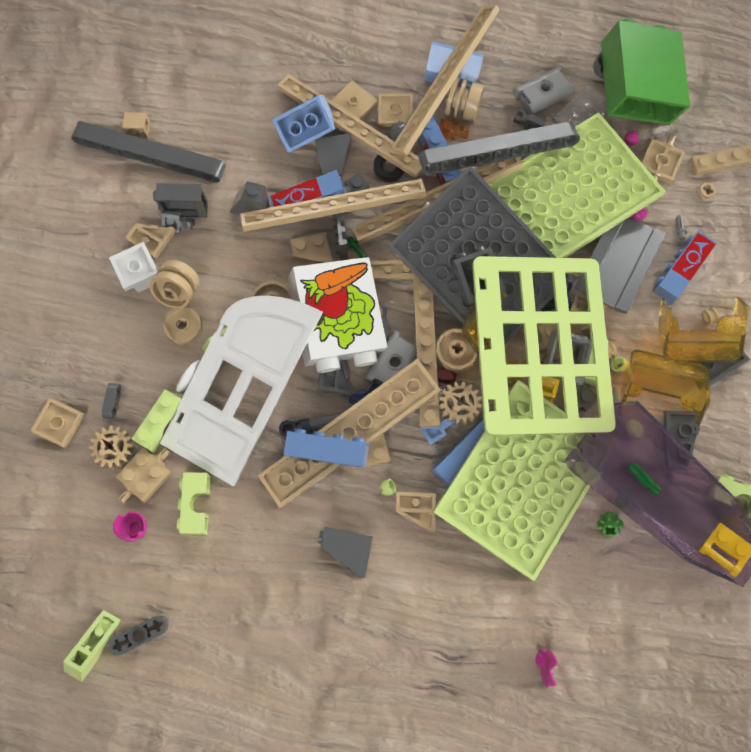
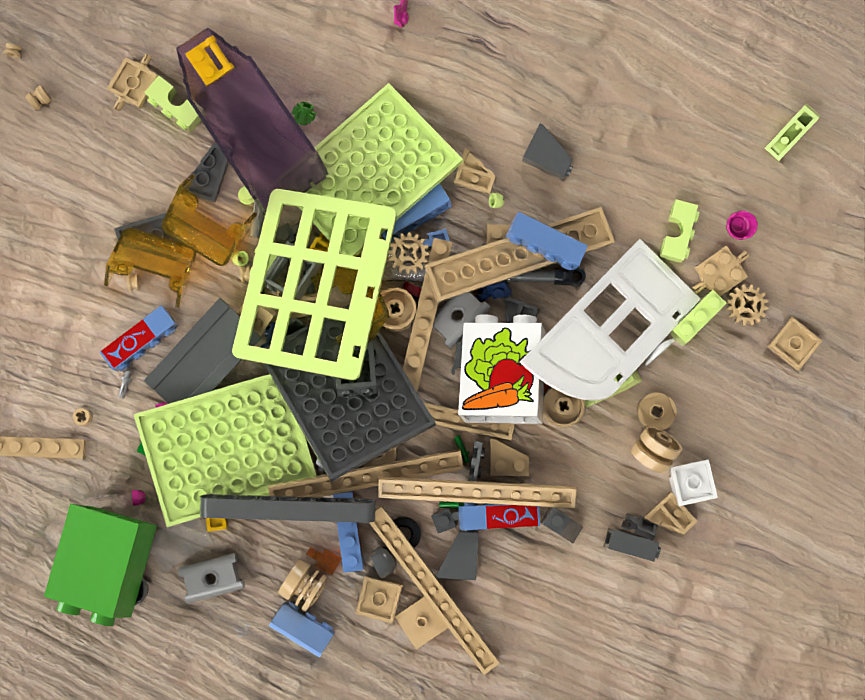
camera: 160 degrees left, 10 degrees up
(111, 401) = (739, 351): dark grey beam -> none
(122, 637) = (755, 123): dark grey beam -> none
(136, 124) = (663, 655): tan brick -> none
(148, 151) = (656, 618): dark grey beam -> none
(304, 123) = (482, 601): light blue slope -> none
(444, 79) = (319, 604): tan plate -> none
(529, 121) = (235, 541): dark grey plate -> none
(643, 478) = (258, 144): green axle -> none
(663, 159) = (116, 462): tan plate -> none

